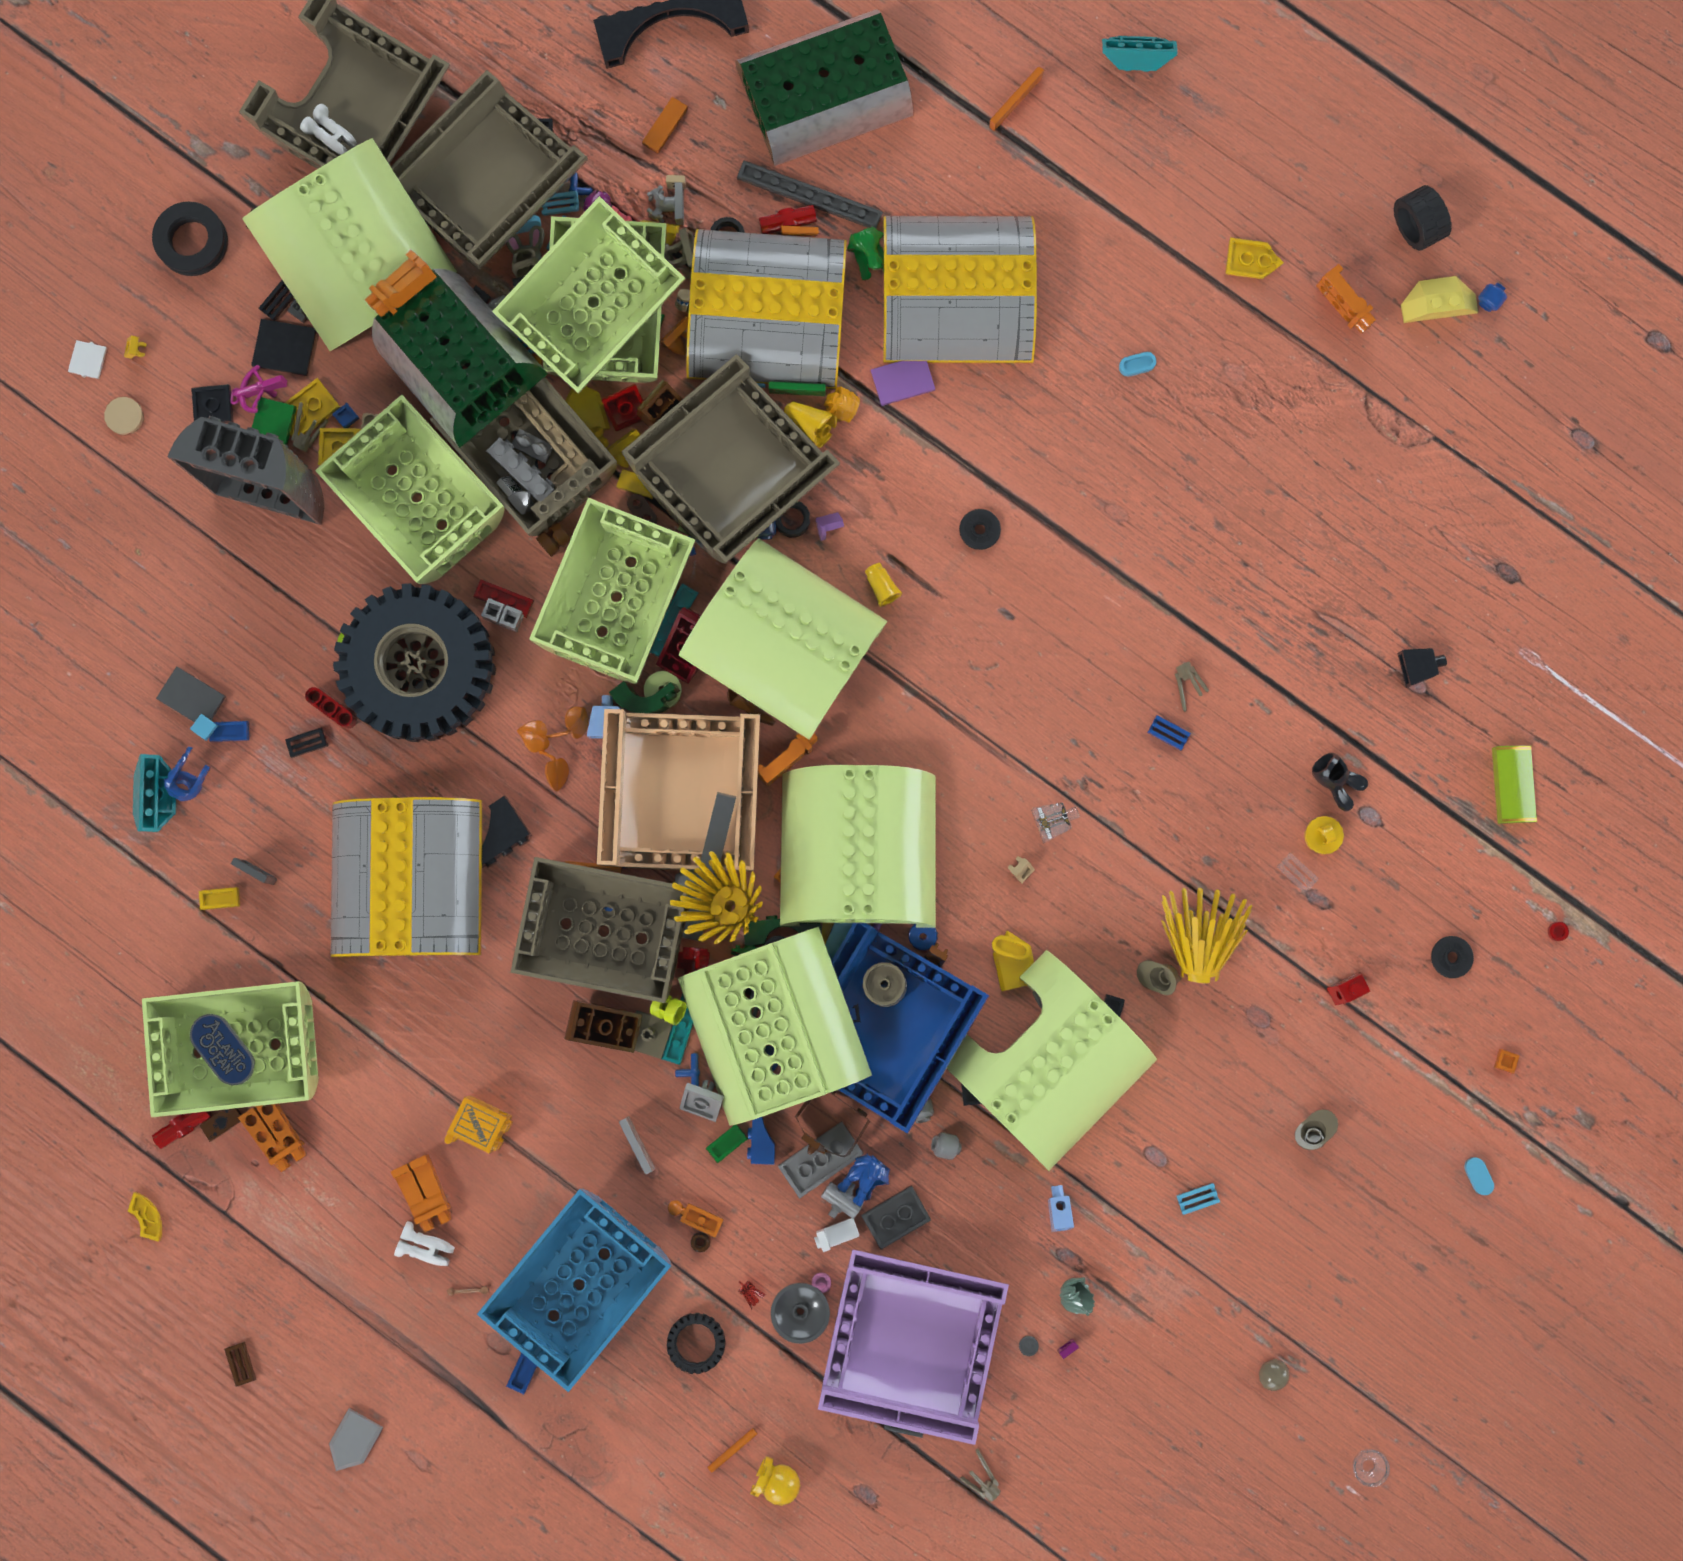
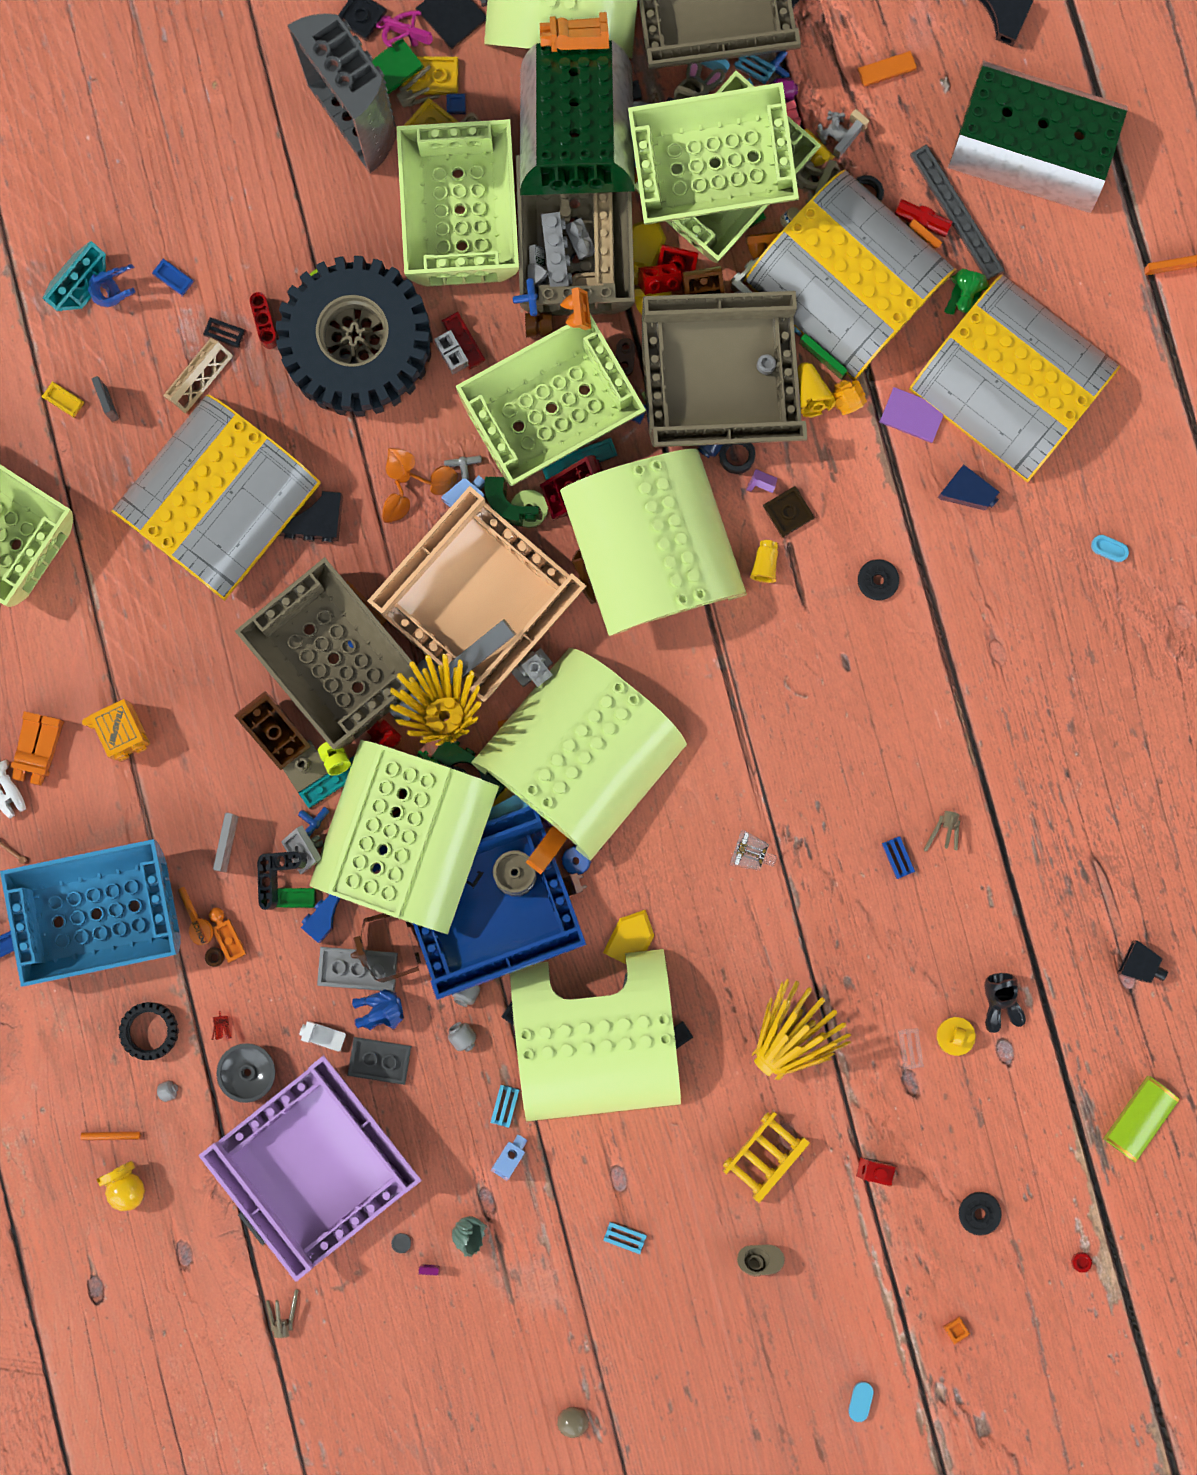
camera: 40 degrees right, 0 degrees up
(190, 696) = (164, 228): dark grey tile -> none
(204, 727) = (156, 258): medium azure tile -> none
(306, 787) = (193, 370): none -> tan fence
(532, 522) = (531, 297): none -> blue piece
(573, 496) = (579, 303): none -> orange tile
(581, 695) = (463, 462): none -> light grey piece
(620, 428) = (659, 278): none -> red brick
(630, 482) = (633, 328): yellow tile -> none
(671, 1229) = (200, 929): none -> orange piece
(685, 385) = (737, 285): none -> white bracket
(689, 1134) = (274, 866): none -> black beam
(748, 1378) = (167, 1091): none -> light grey piece
(758, 429) = (766, 364): none -> light grey tile
(769, 812) = (533, 668): none -> light grey tile
(787, 759) = (581, 638): orange hips -> none
(821, 1281) = (282, 1063): bright pink tile -> none
(841, 1201) = (347, 1013): light grey pin -> none
(867, 531) = (788, 511): none -> dark brown tile
(894, 946) = (546, 850): none -> orange tile
(994, 404) = (969, 490): none -> dark blue slope
(1010, 947) = (636, 924): yellow tile -> none
(1022, 870) = (694, 872): tan tile -> none
(1029, 1188) = (500, 1122): none -> medium azure tile
(1158, 977) = (733, 1040): dark tan piece -> none
(1272, 1056) = (772, 1175): none -> yellow fence

